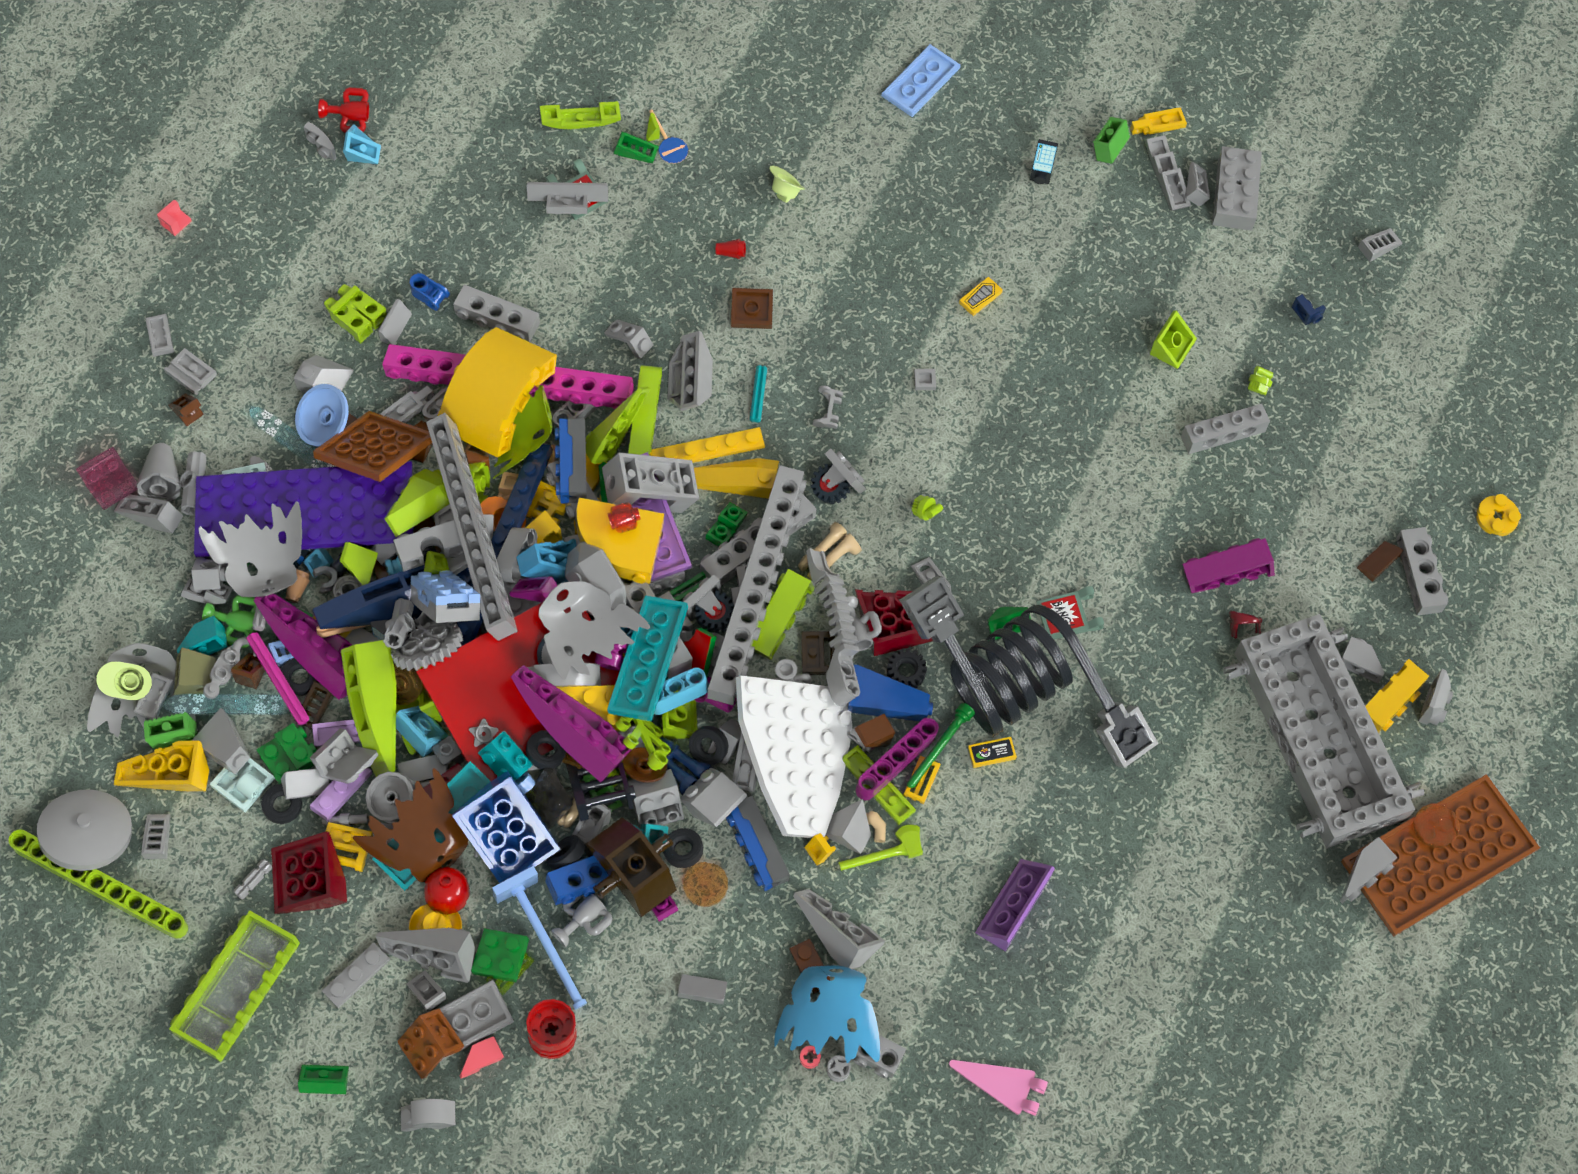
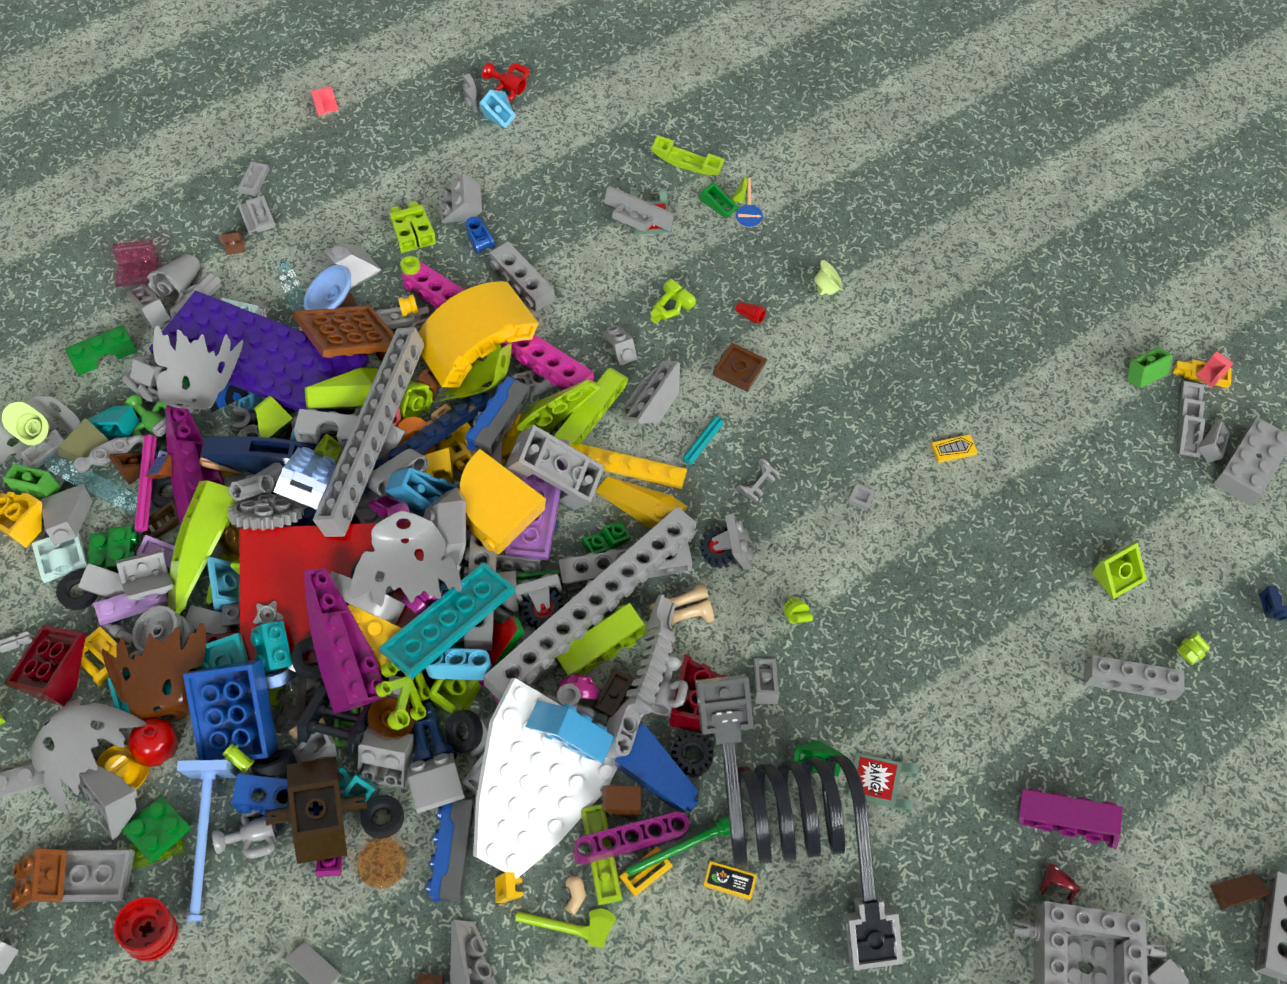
camera: 30 degrees right, 5 degrees down
(127, 588) = (87, 352): none -> green arch
(285, 657) = (161, 468): none -> dark orange slope
(296, 590) = (218, 415): medium nougat cone -> none
(386, 263) = (460, 200): none -> light grey slope
(387, 353) = (410, 265): none -> lime tile
(389, 923) = (73, 744): none -> light grey piece
(394, 323) = (436, 247): light grey slope -> none
(411, 393) = (408, 305): none -> yellow wheel
(426, 991) = (69, 829): light grey slope -> none
(480, 1056) = (74, 918): coral slope -> none
(539, 862) = (237, 758): none -> lime pin
(623, 517) = (503, 483): clear red head -> none
(650, 261) = (674, 291): none -> lime piece
(779, 655) = (584, 683): none -> dark pink piece
(806, 693) = (571, 729): none -> dark azure wedge
(850, 827) = (548, 882): light grey slope -> none
(920, 80) = (997, 249): light blue tile -> none
(1043, 162) = (1074, 358): slope -> none
(1167, 117) = (1214, 369): none -> coral panel

